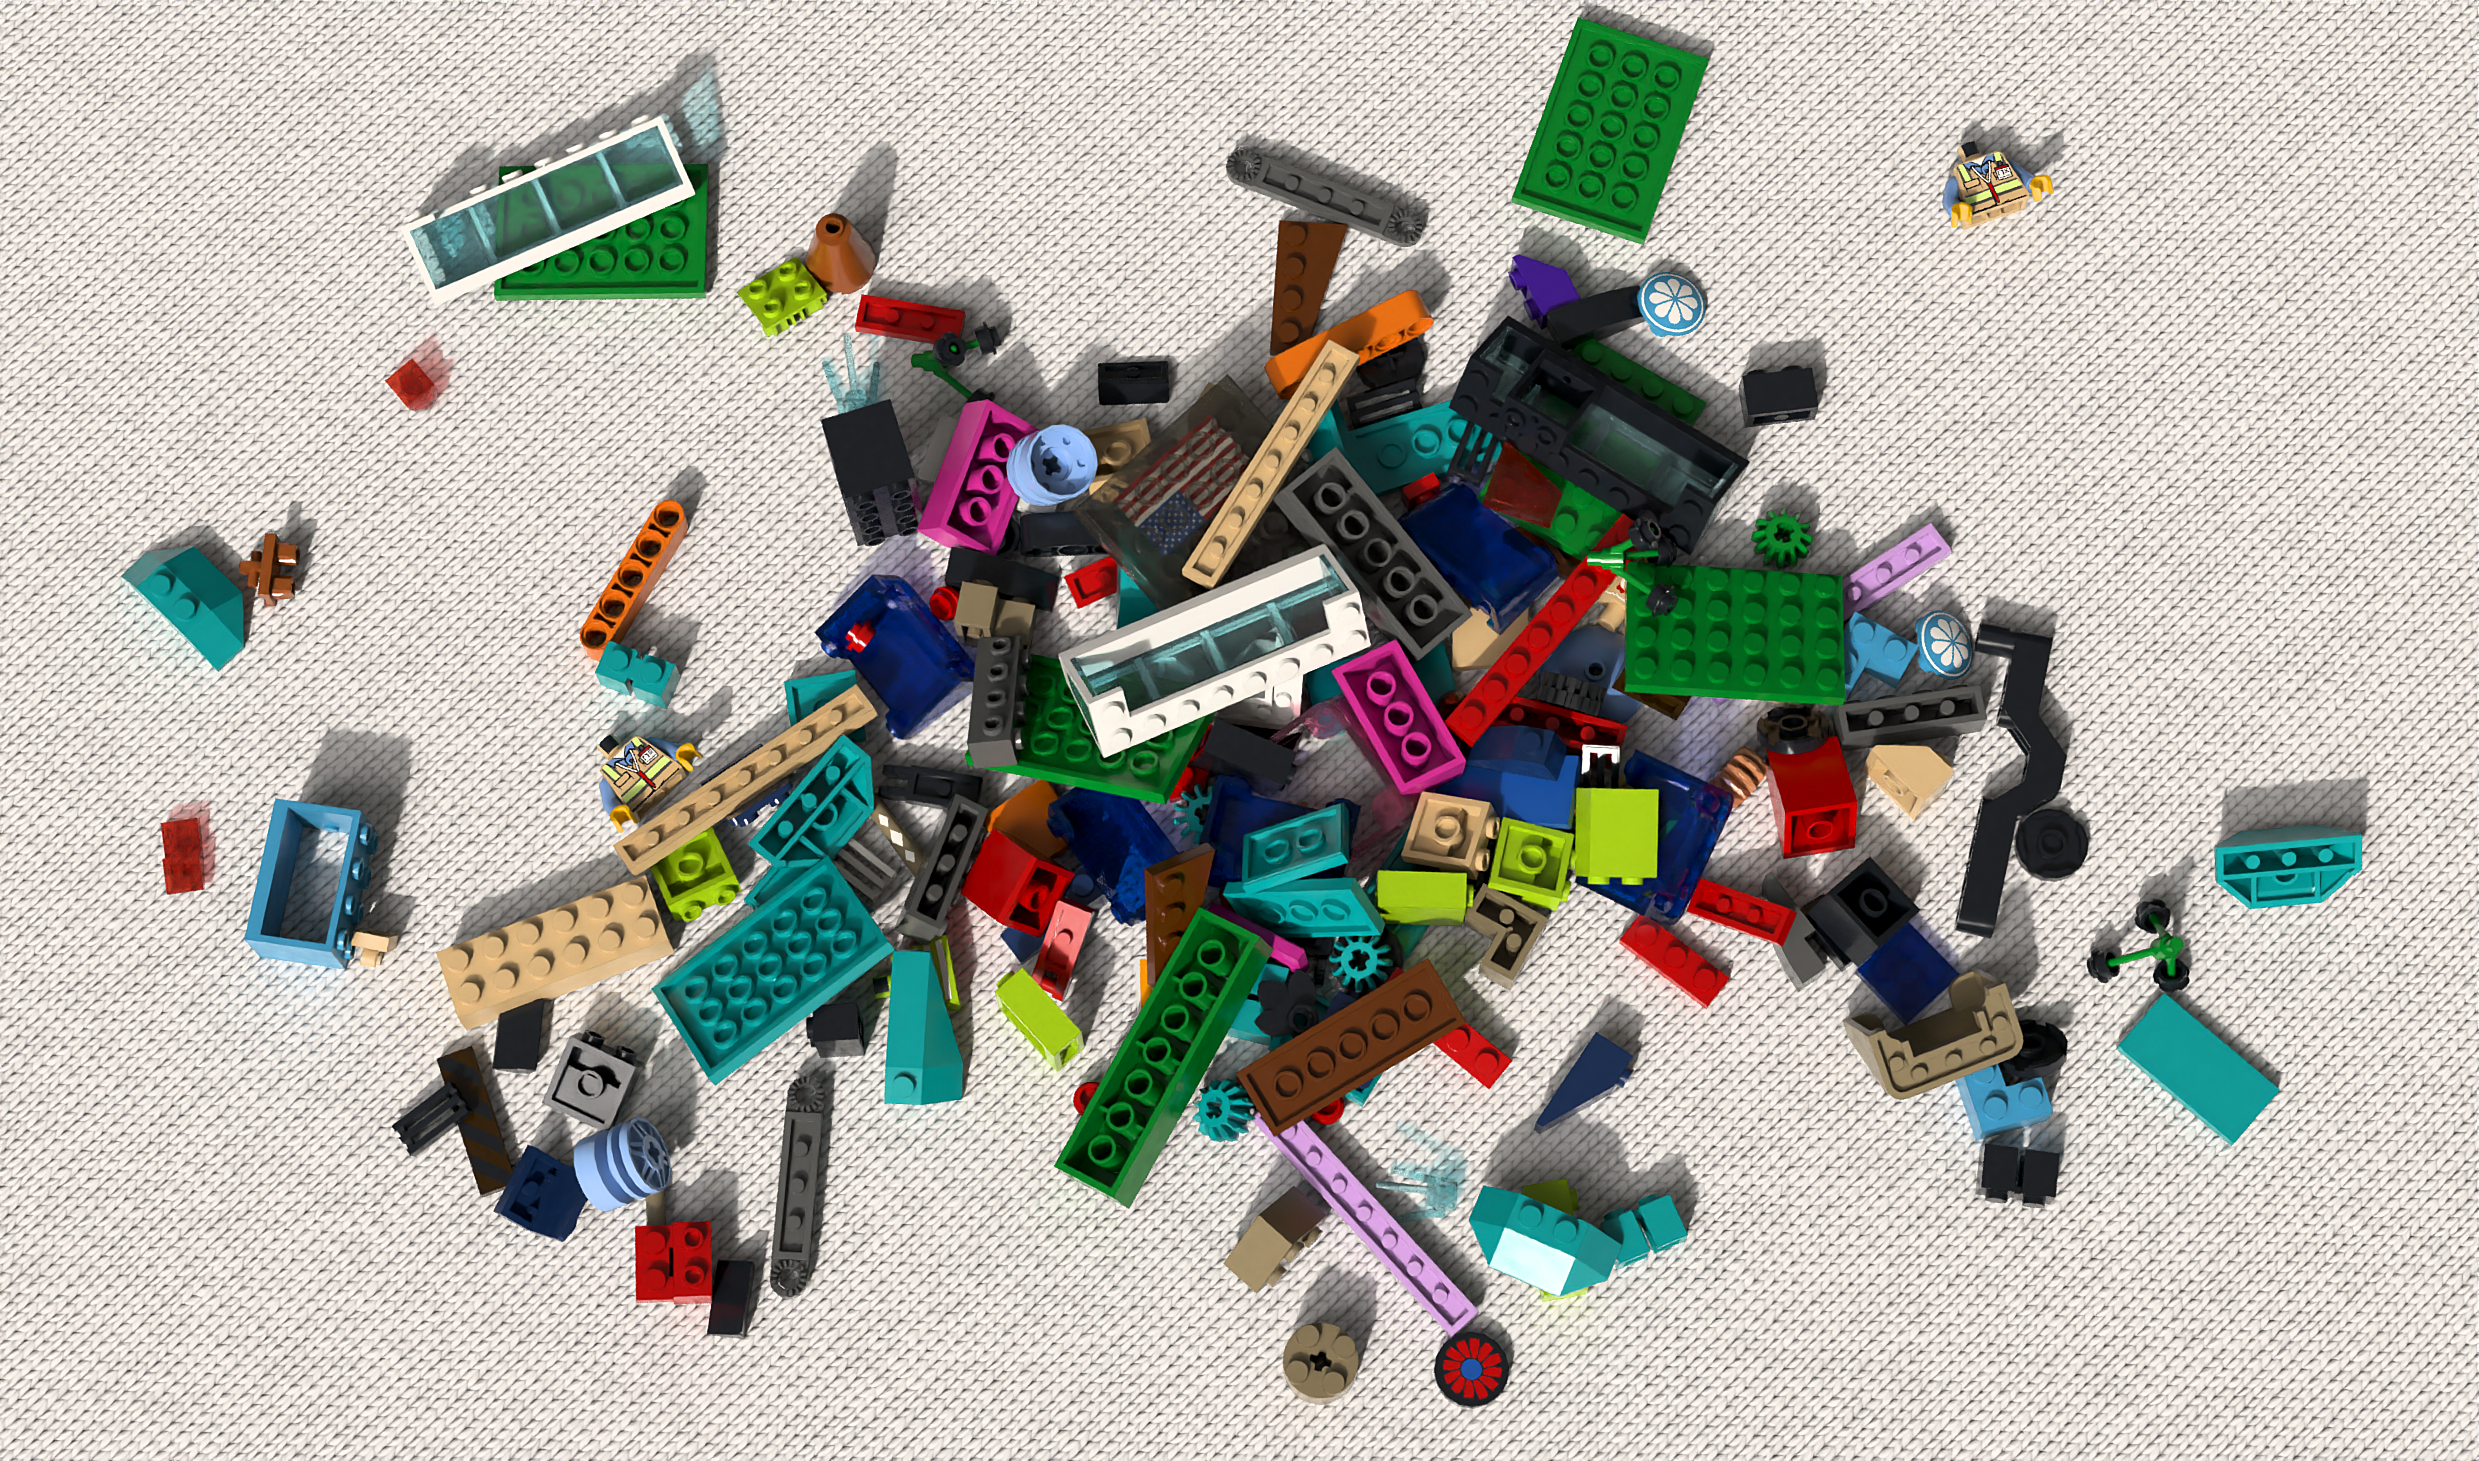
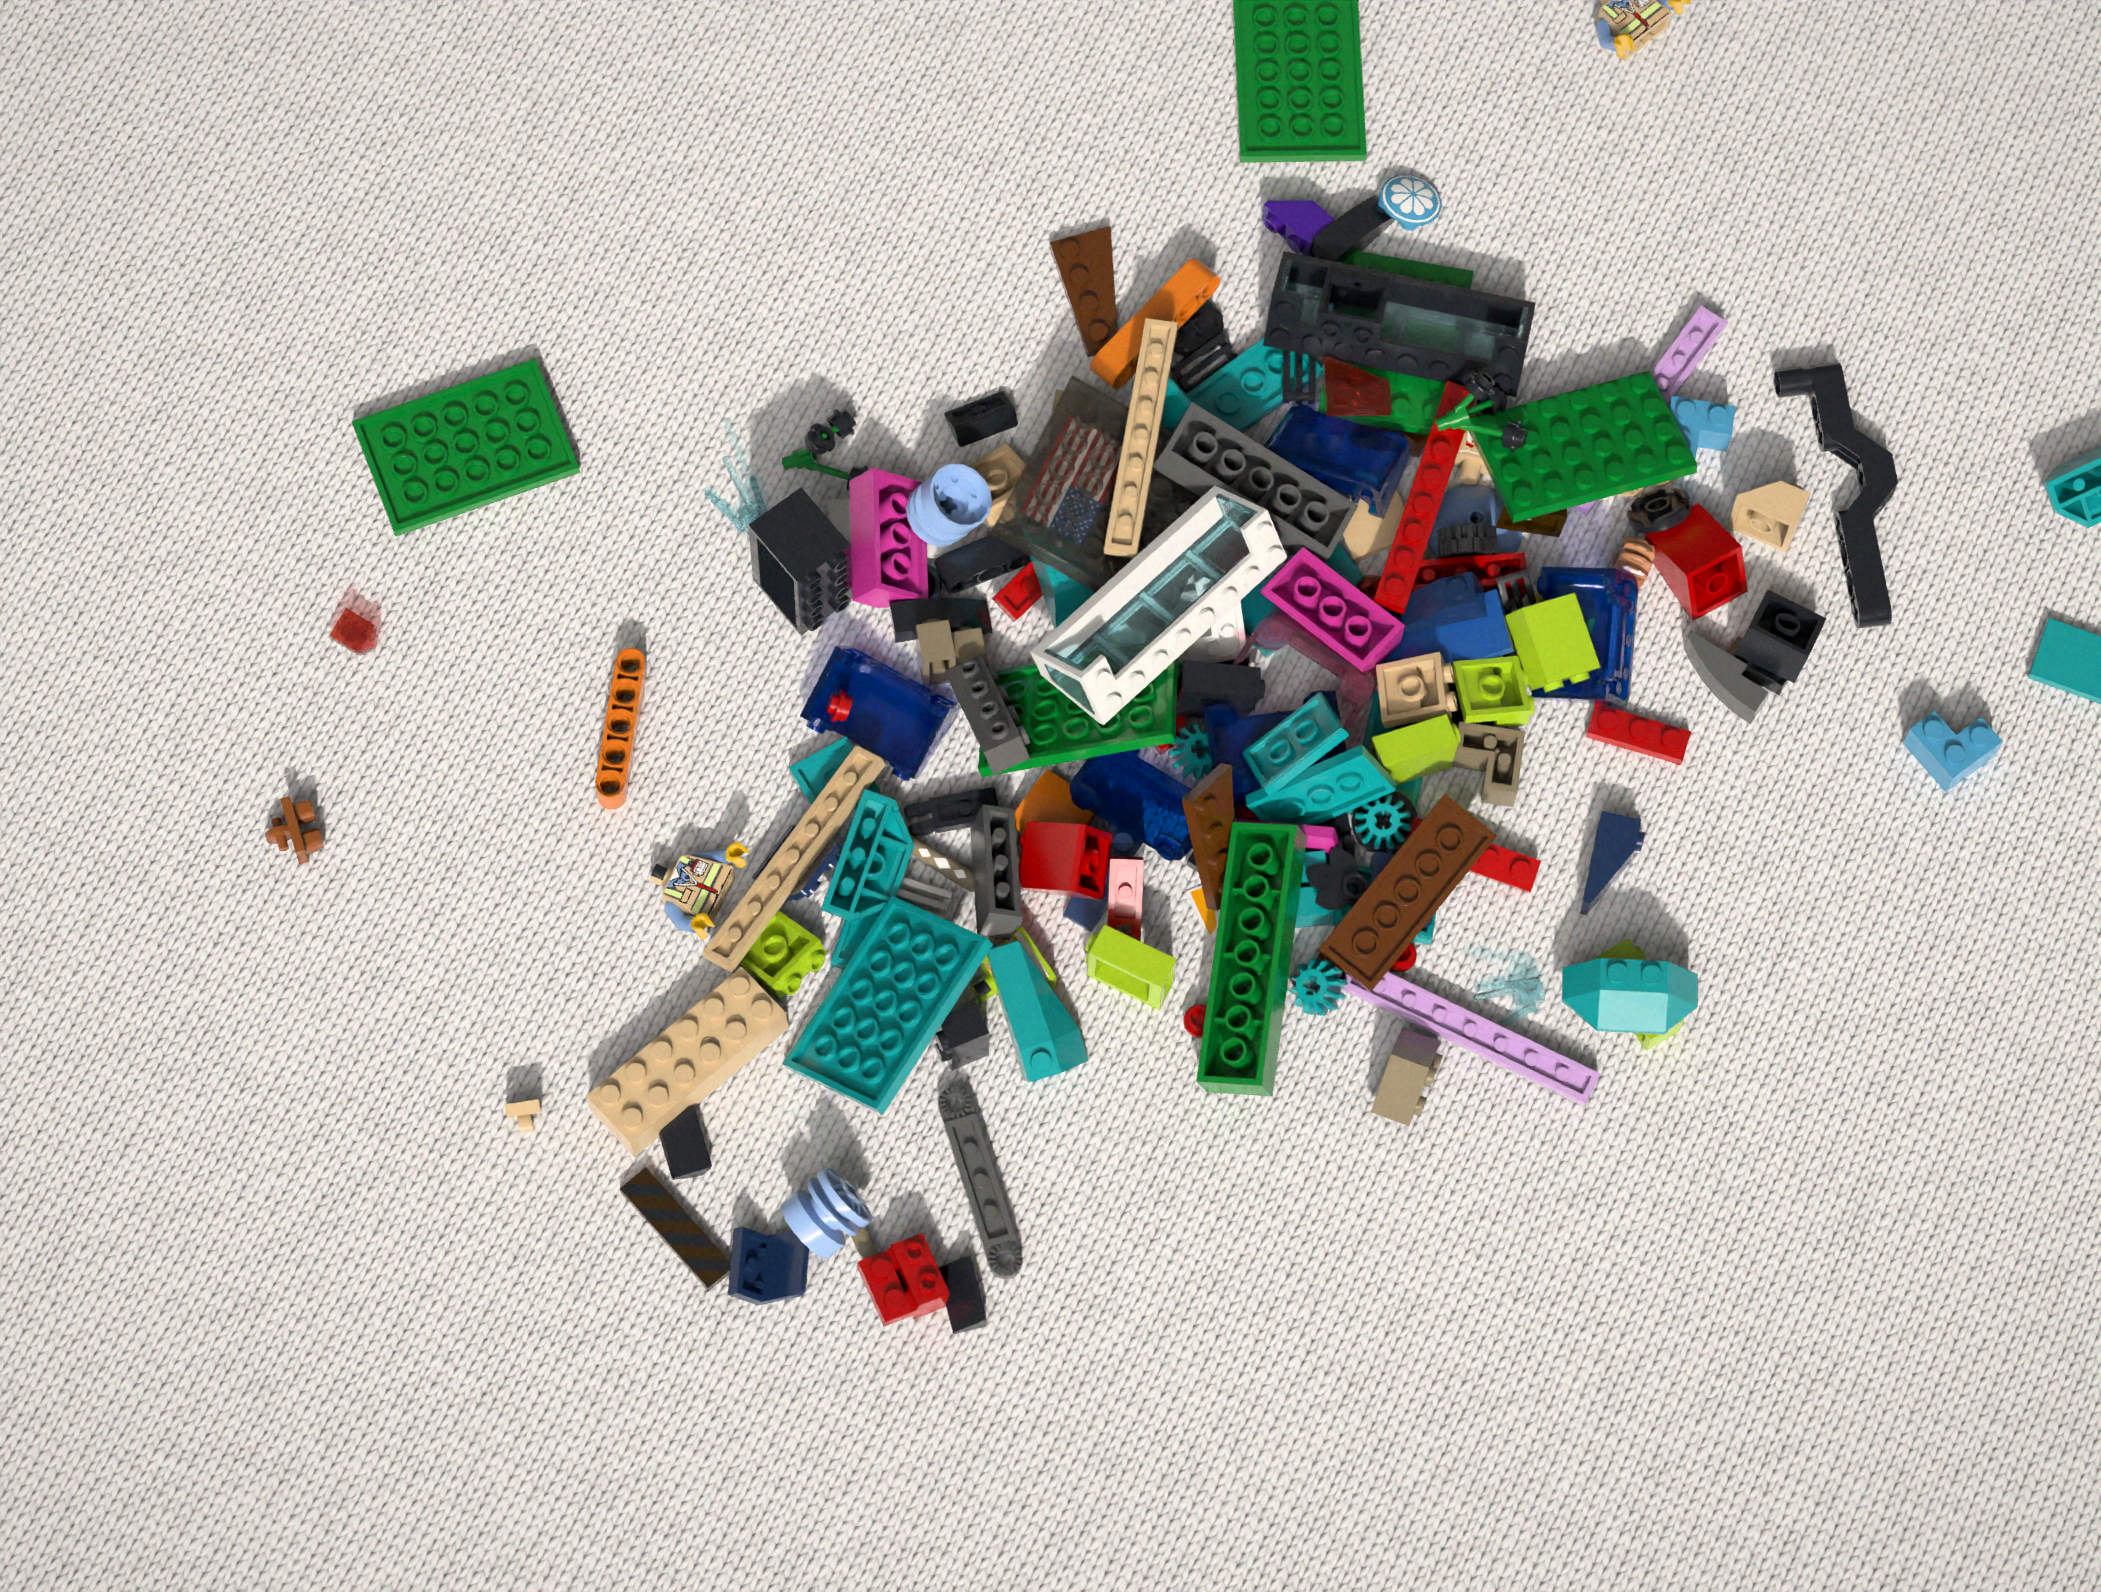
camera: 25 degrees left, 5 degrees down
(183, 856) = (319, 1099): clear red slope -> none
(192, 600) = (233, 880): teal wedge -> none
(276, 878) = (437, 1020): dark azure hose -> none
(424, 1108) = (627, 1233): black tile -> none
(547, 209) = (414, 440): clear light blue window -> none
(593, 1080) = (766, 1157): plate -> none
(651, 677) = (673, 800): teal piece -> none
(782, 295) = (648, 448): lime hinge -> none
(840, 255) = (683, 396): dark orange cone -> none
(907, 319) = (765, 431): red plate -> none
(944, 602) = (901, 654): red plate -> none
(1309, 1344) = (1499, 1150): dark tan brick -> none
(1324, 198) = (1080, 210): dark grey plate -> none
(1420, 491) = (1266, 424): red plate -> none
(1471, 1370) = (1612, 1125): tile -> none
(1659, 1222) = (1711, 956): teal piece -> none
(1741, 912) = (1680, 672): red plate -> none
(1778, 396) = (1531, 246): black brick -> none
(1784, 526) = (1590, 369): green gear -> none
(1907, 974) = (1834, 677): clear blue plate -> none
(1909, 717) = (1751, 467): dark grey brick -> none
(1943, 645) = (1753, 400): dish -> none
(1944, 1046) = (1911, 701): dark tan windscreen -> none
(2035, 1179) = (1984, 808): black piece -> none
(2042, 1051) = (1961, 699): black tile -> none
(2051, 845) = (1907, 533): black tile -> none
(2170, 972) = (2016, 561): black plant -> none

